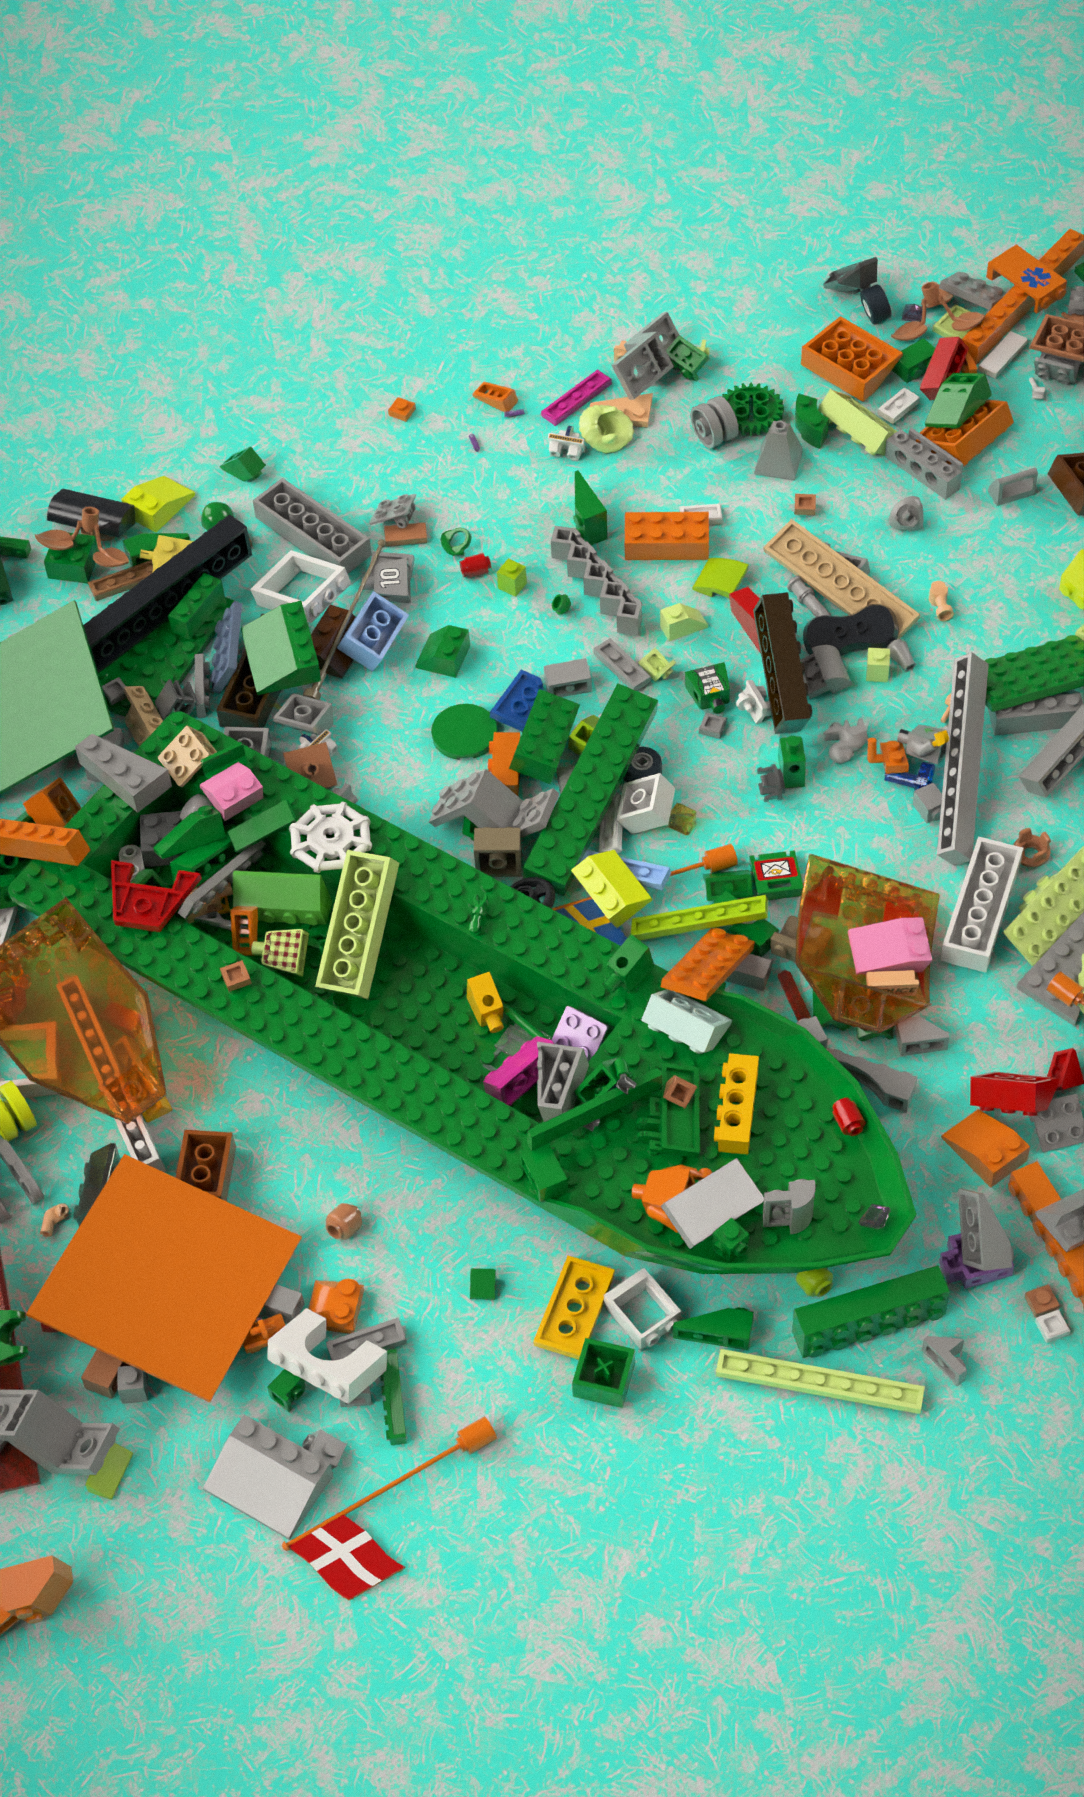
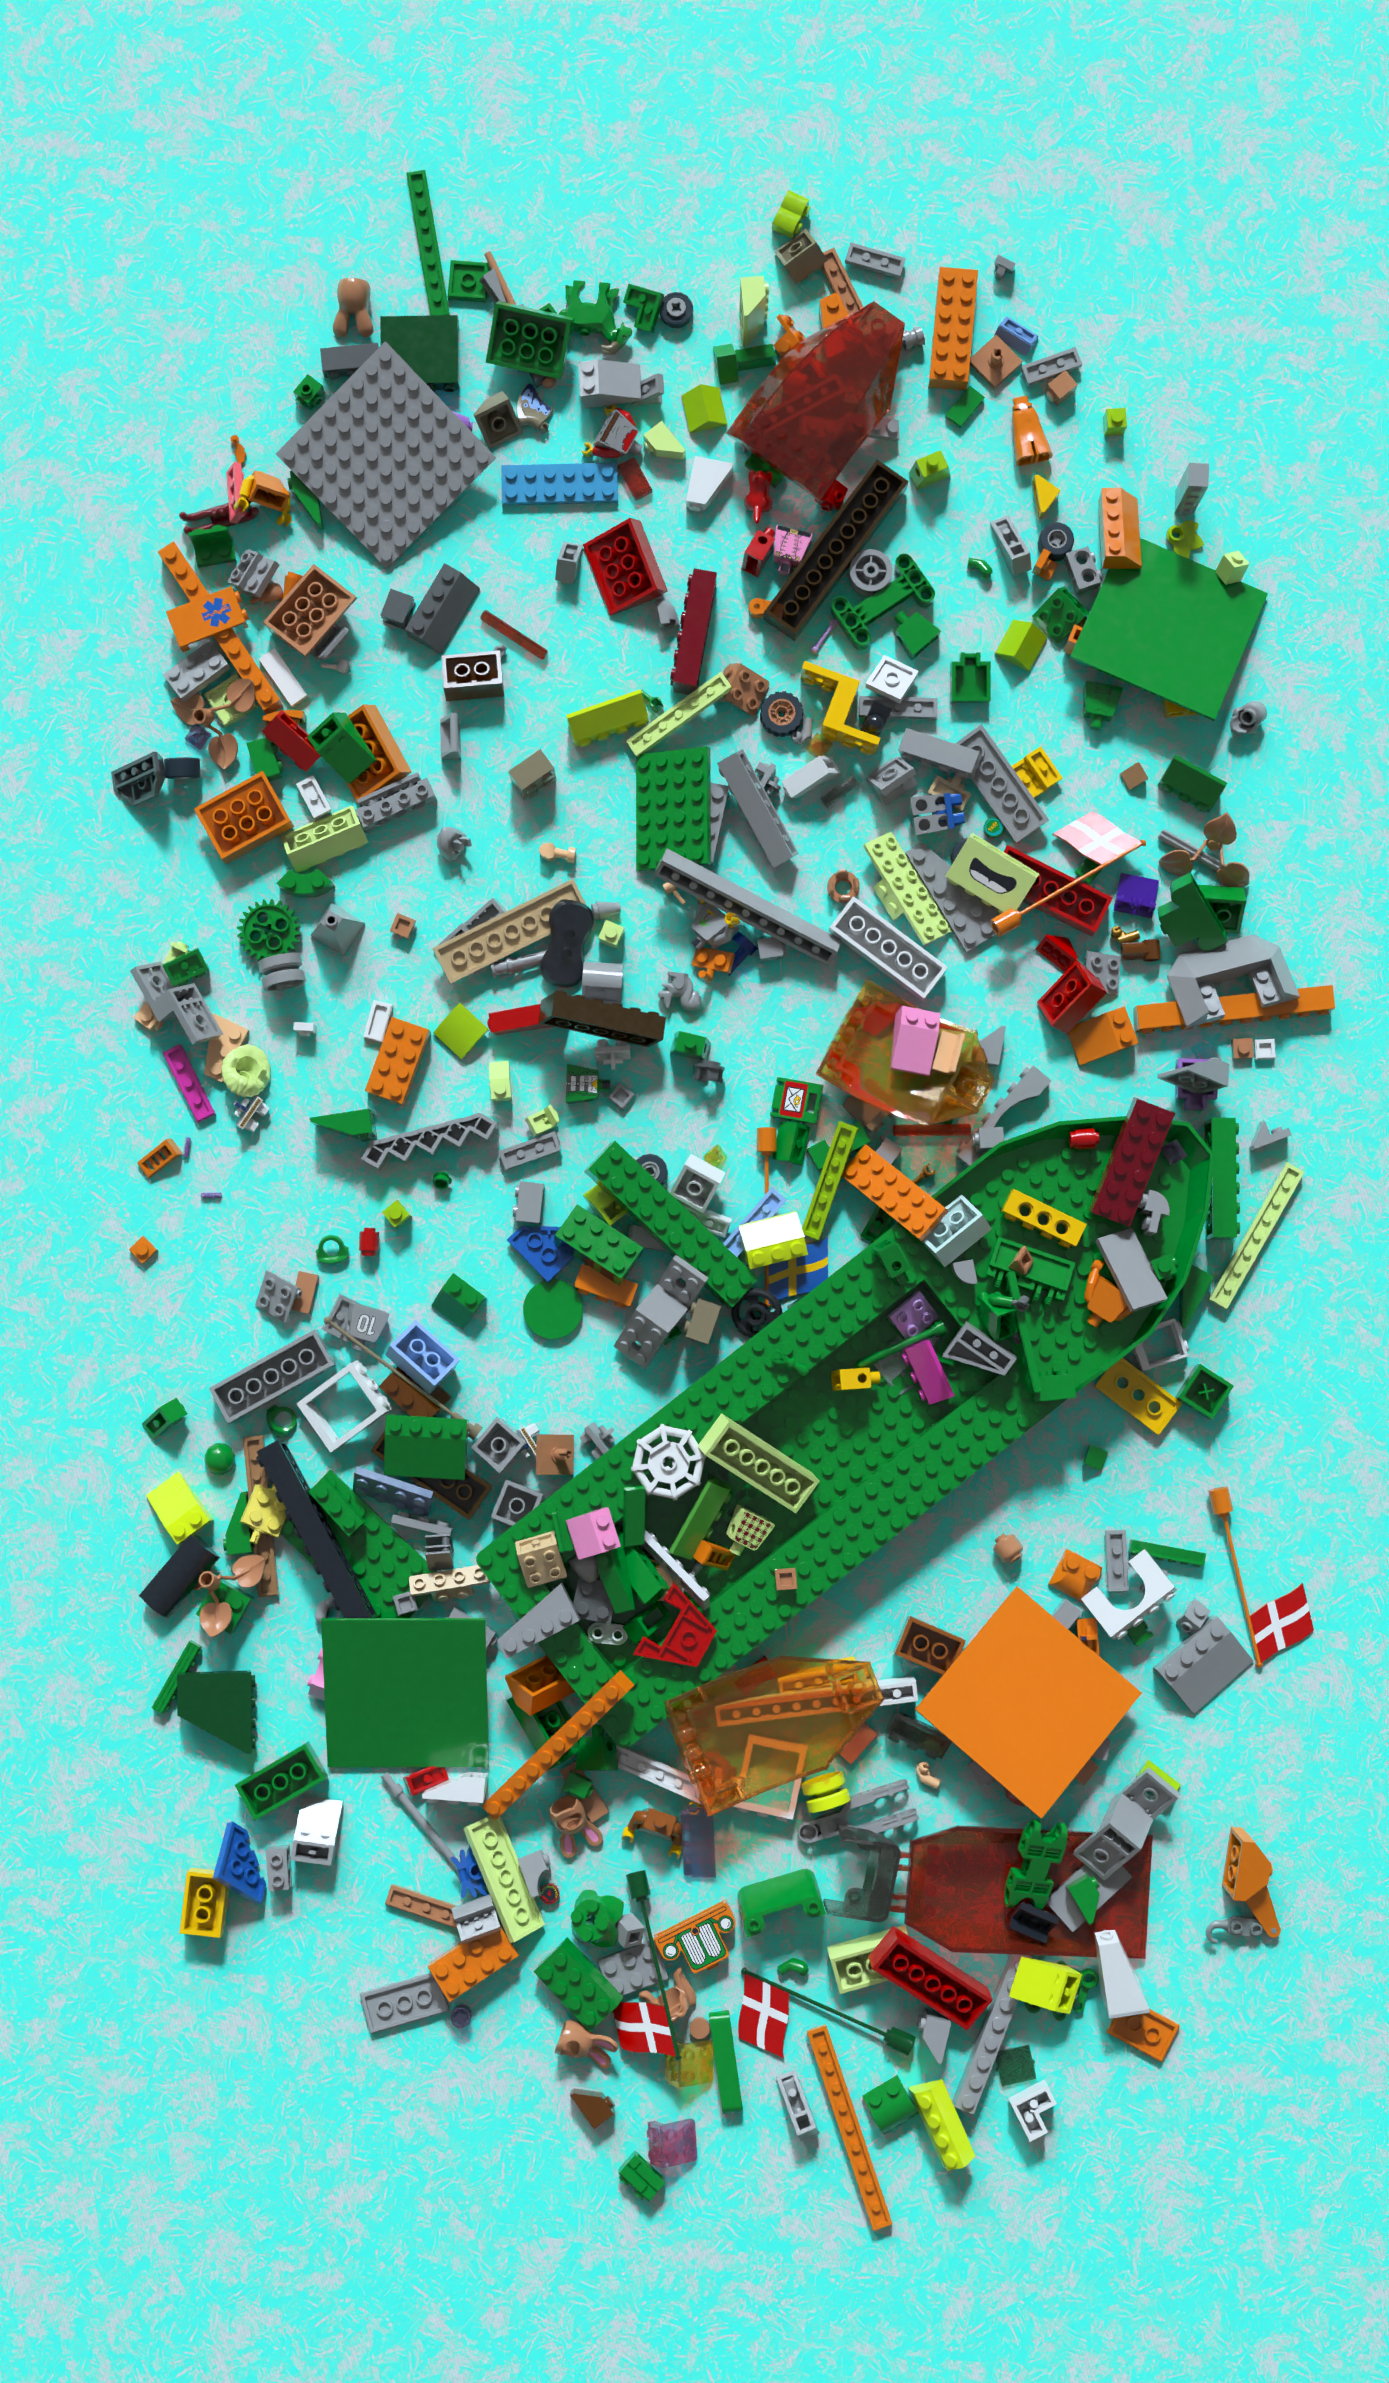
camera: 75 degrees left, 30 degrees up
(74, 1137) = (858, 1743): none -> nougat tile
(276, 544) = (279, 1431): none -> green piece
(645, 1045) = (965, 1272): none -> light grey brick
(667, 460) = (304, 1029): none -> white plate
(845, 1162) = (1131, 1161): none -> dark red brick
(1009, 551) = (532, 774): none -> dark tan brick

